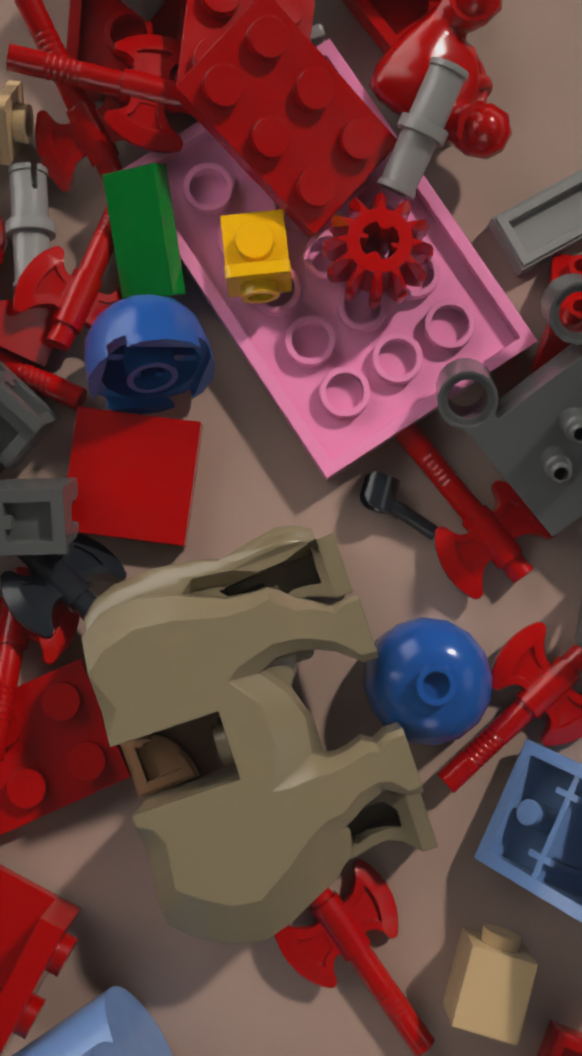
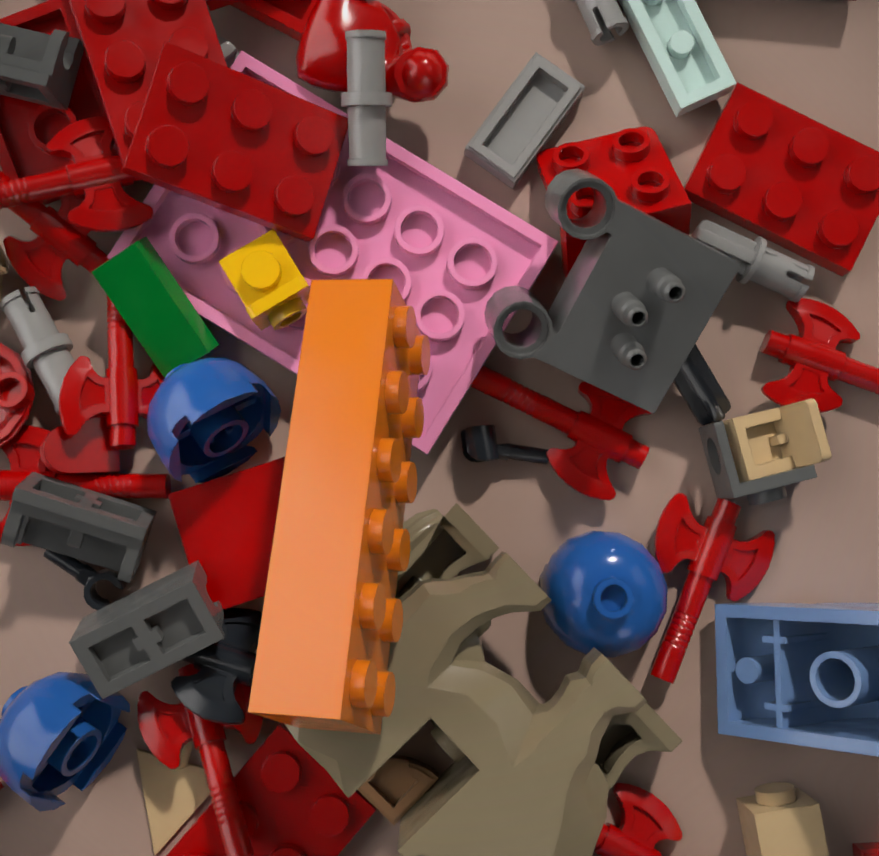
camera: 35 degrees left, 0 degrees up
(225, 484) = (343, 512): none -> orange brick
(385, 231) = (375, 206): red gear -> none

